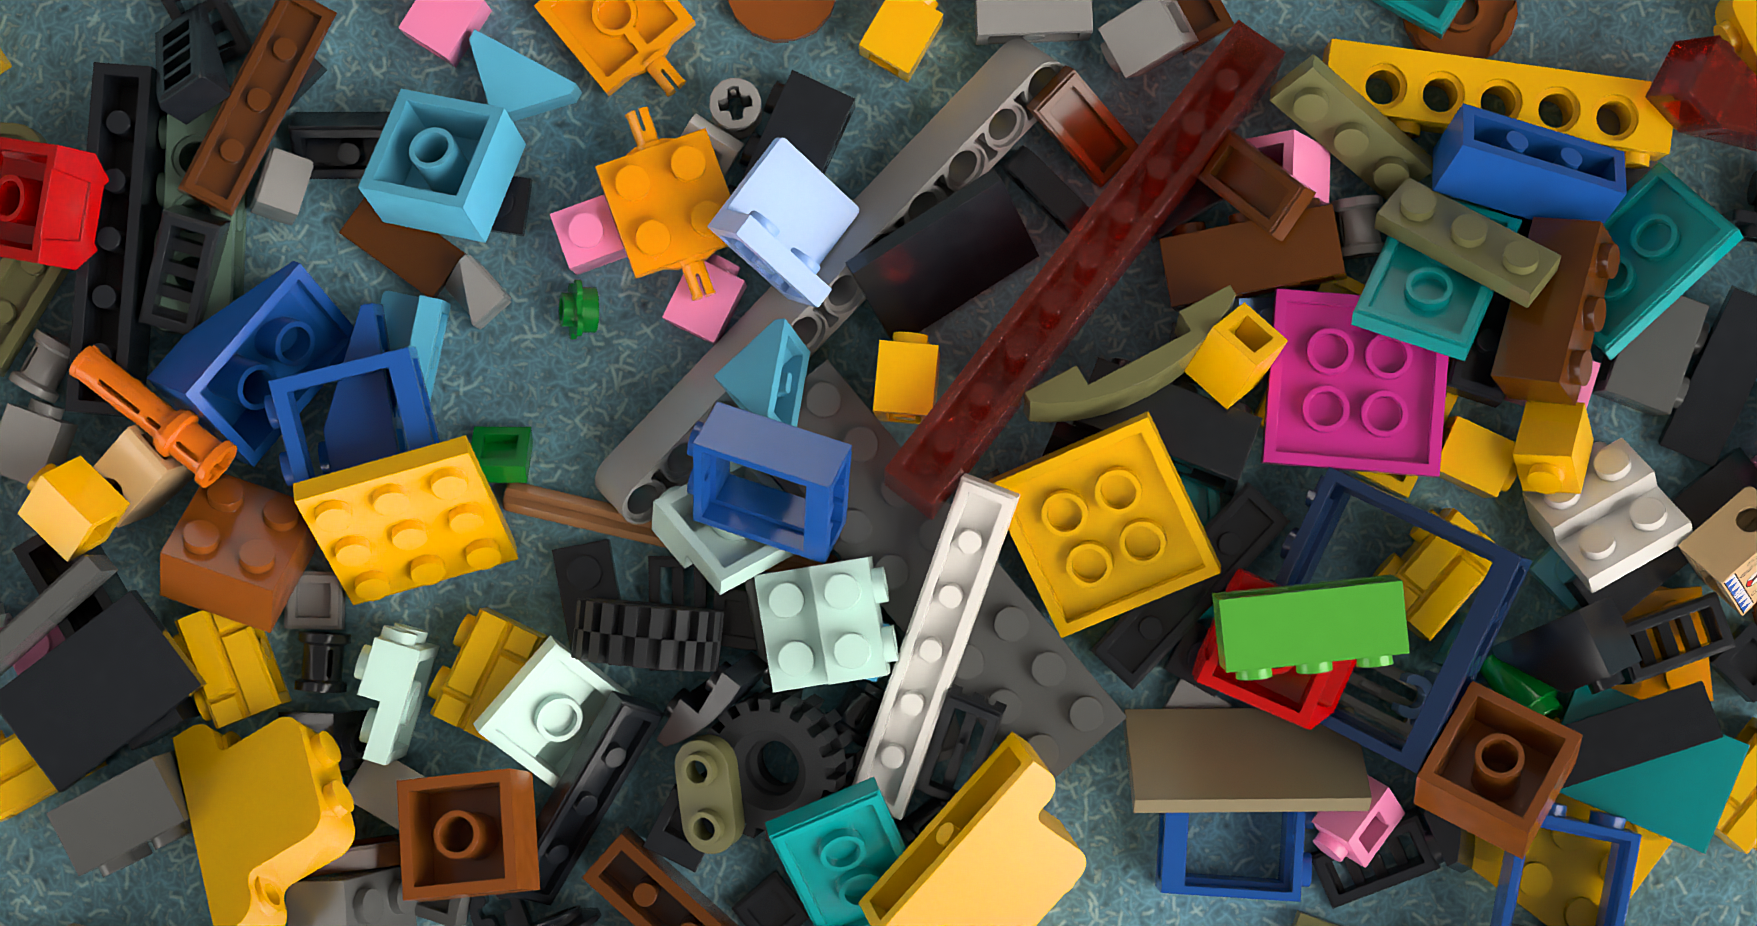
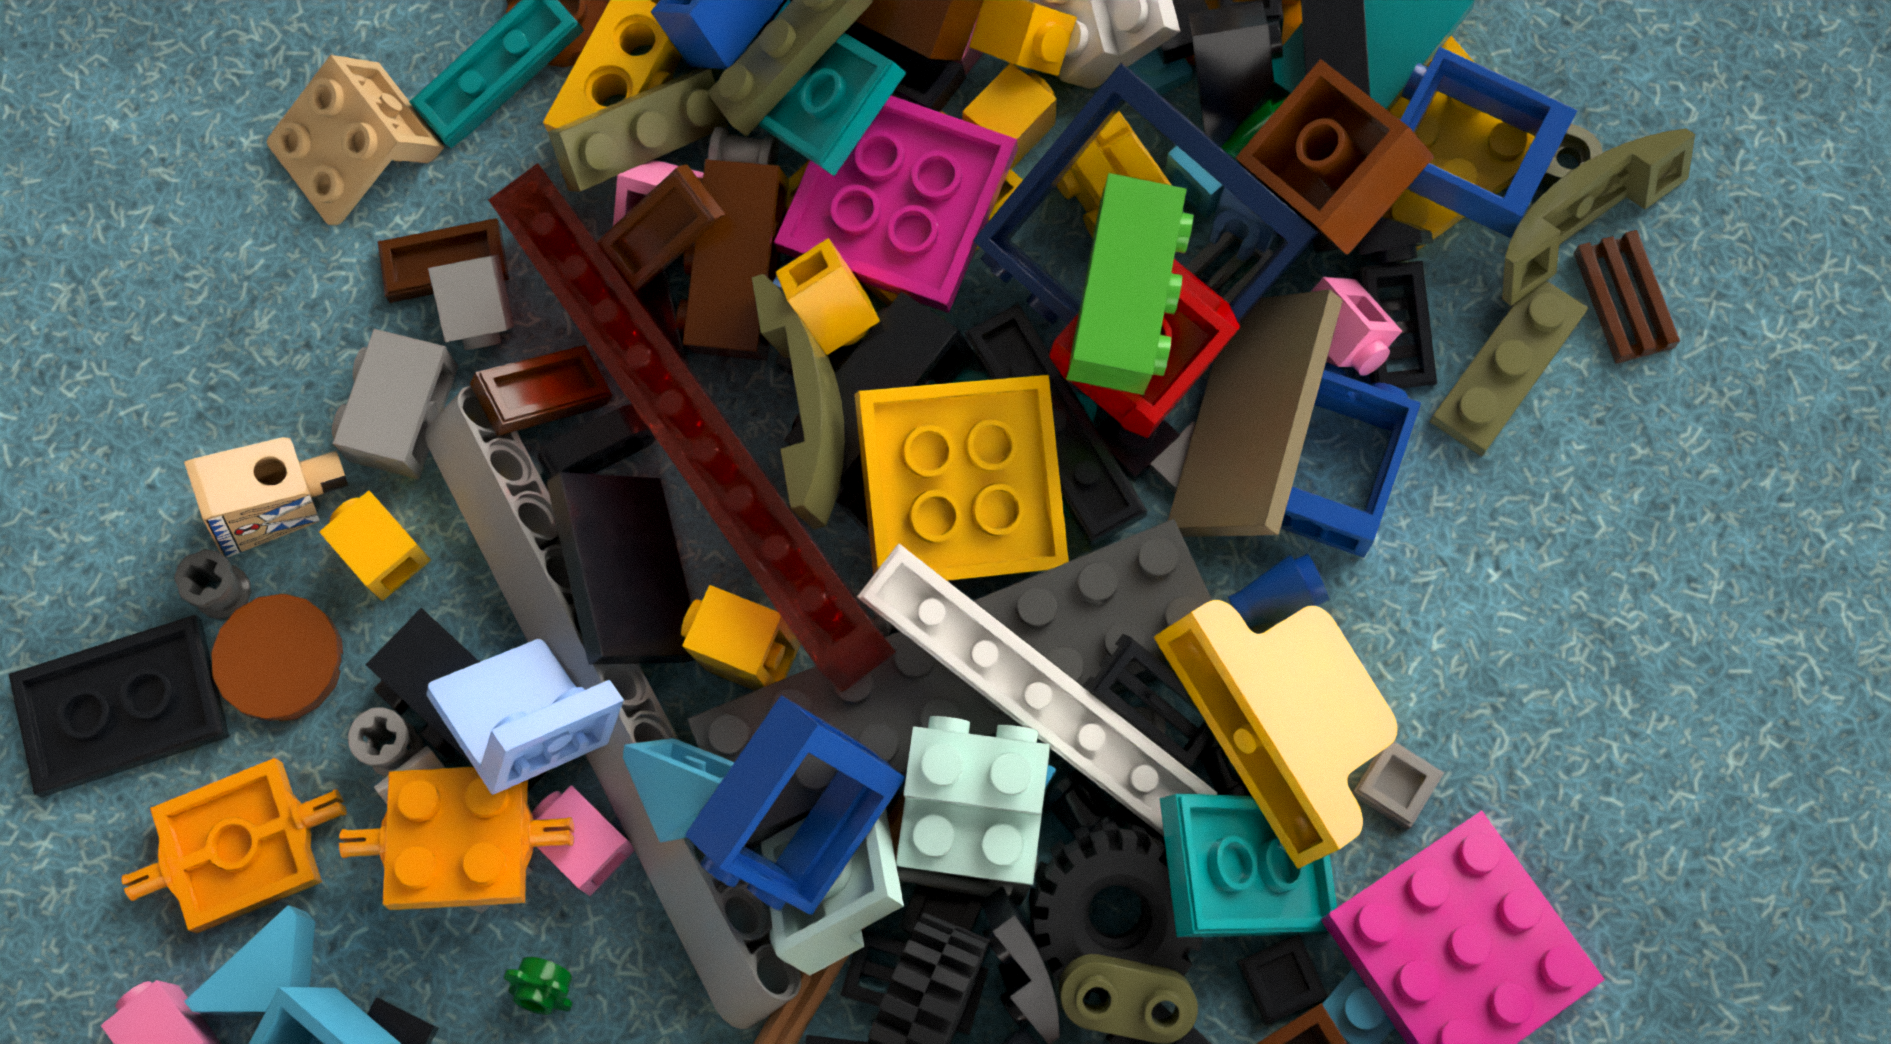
camera: 65 degrees left, 15 degrees down
(588, 235) = (460, 945): bright pink brick -> none
(1096, 822) = (1280, 592): none -> blue cone

